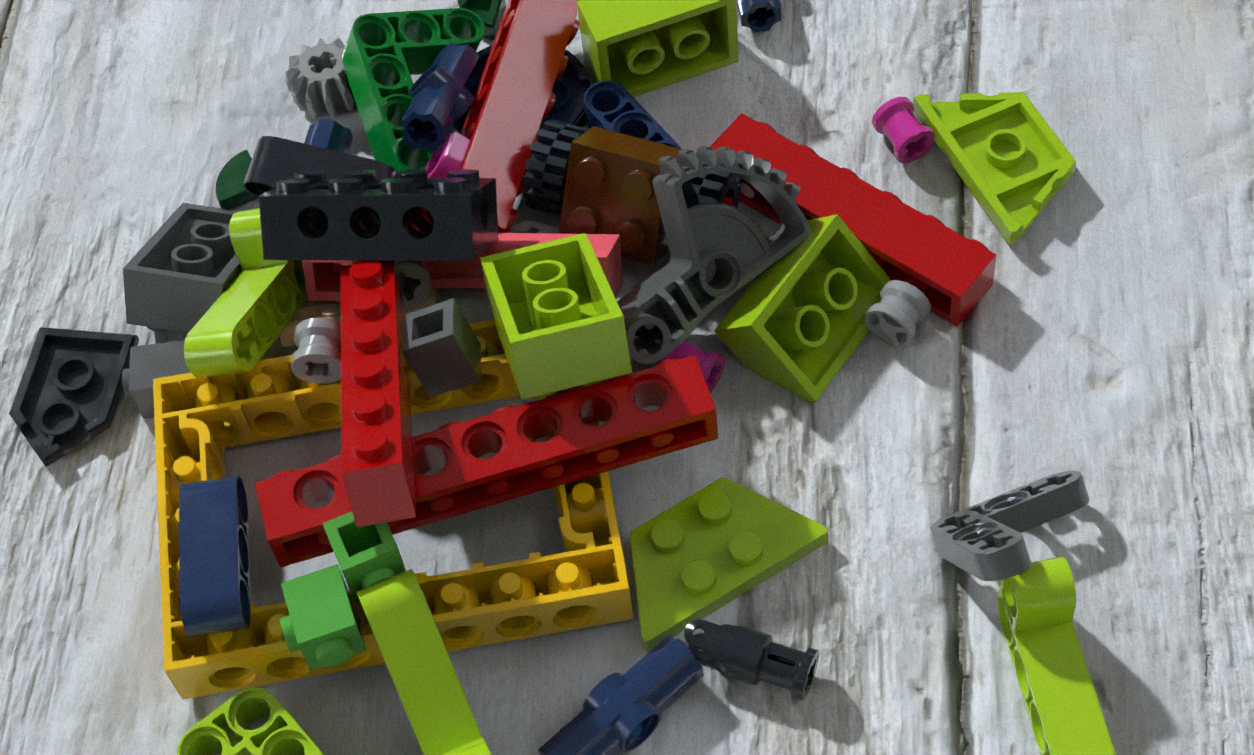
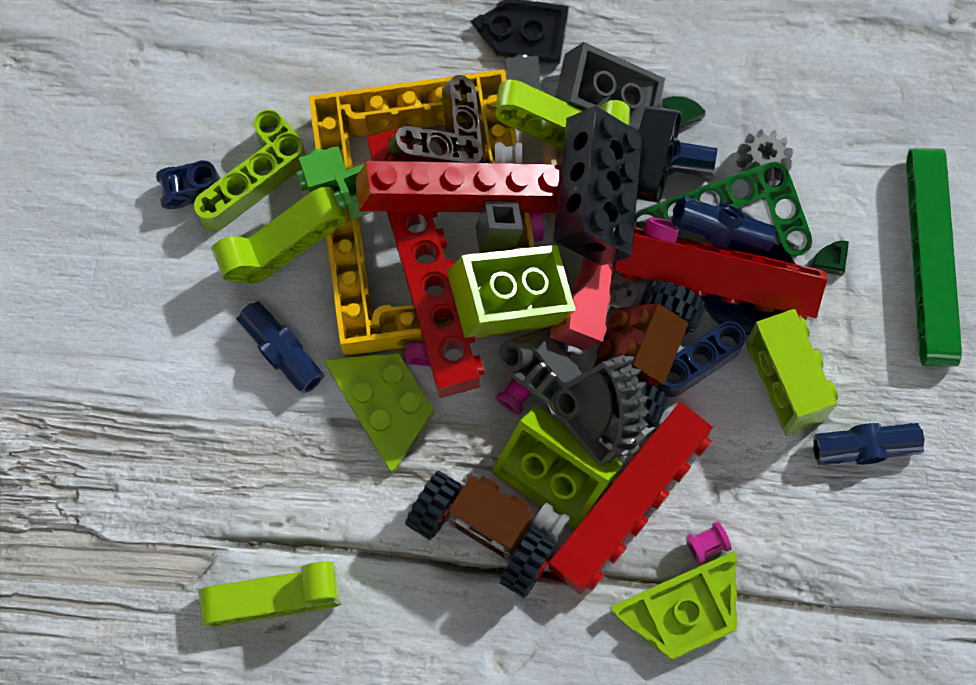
camera: 85 degrees right, 15 degrees up
(214, 556) = (370, 112): dark blue beam -> none
(290, 422) = (453, 138): none -> dark brown beam
(632, 498) = (416, 354): none -> dark pink tile
(753, 656) = (308, 421): black piece -> none
(905, 371) = (488, 519): none -> brick
(988, 535) = (381, 565): dark grey beam -> none

